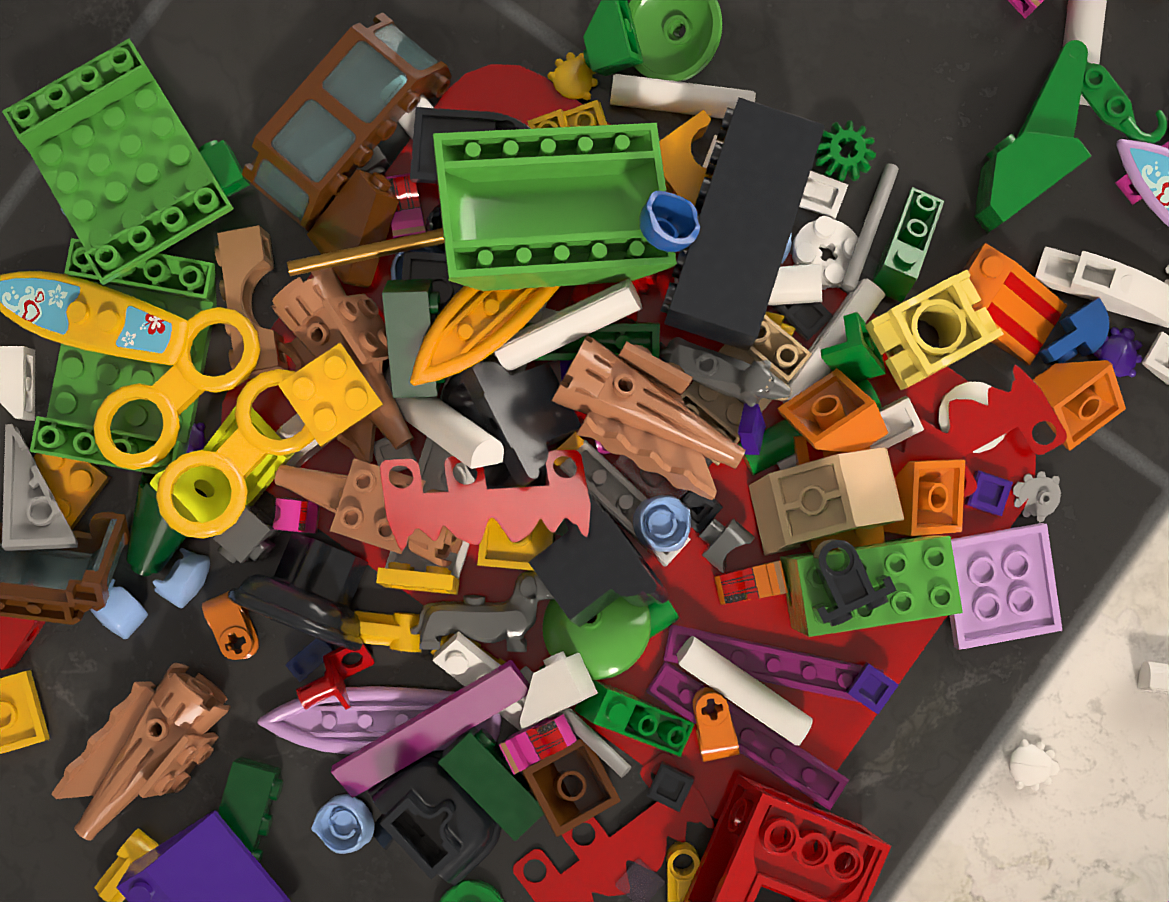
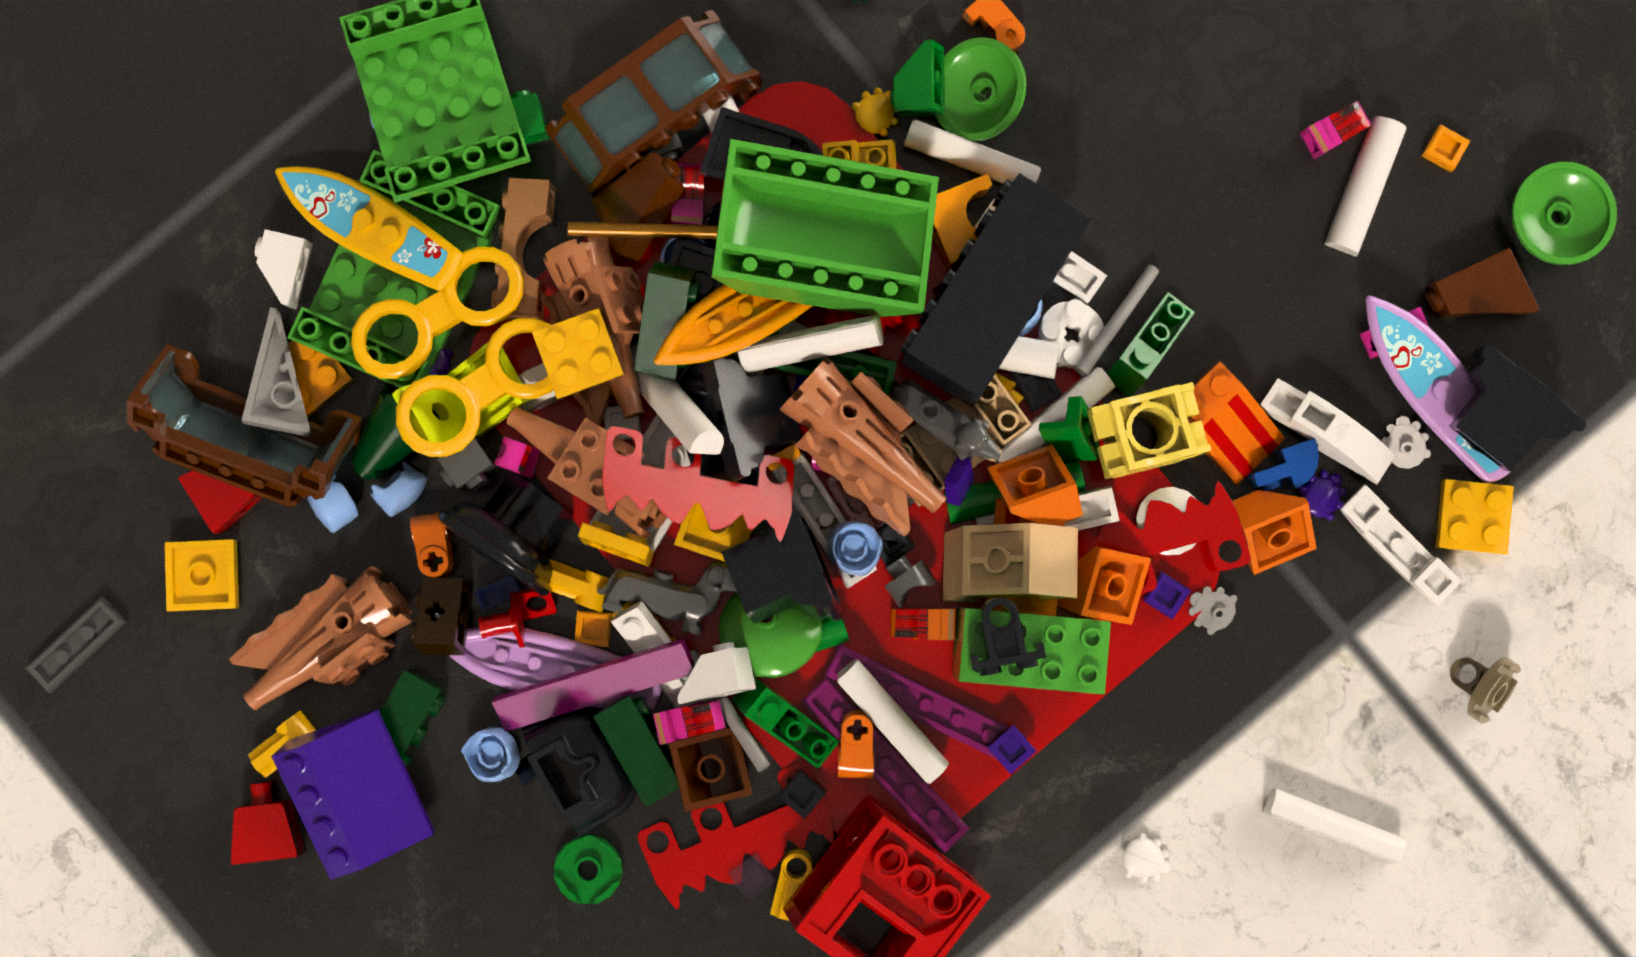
camera: 20 degrees right, 0 degrees up
(270, 708) = (449, 631): none -> dark brown brick
(416, 669) = (593, 628): none -> light orange tile
(669, 221) = (925, 272): blue helmet -> none
(857, 158) = (1099, 240): green gear -> none
(1004, 586) = (1156, 684): lavender plate -> none
(1046, 142) = (1298, 287): green slope -> none

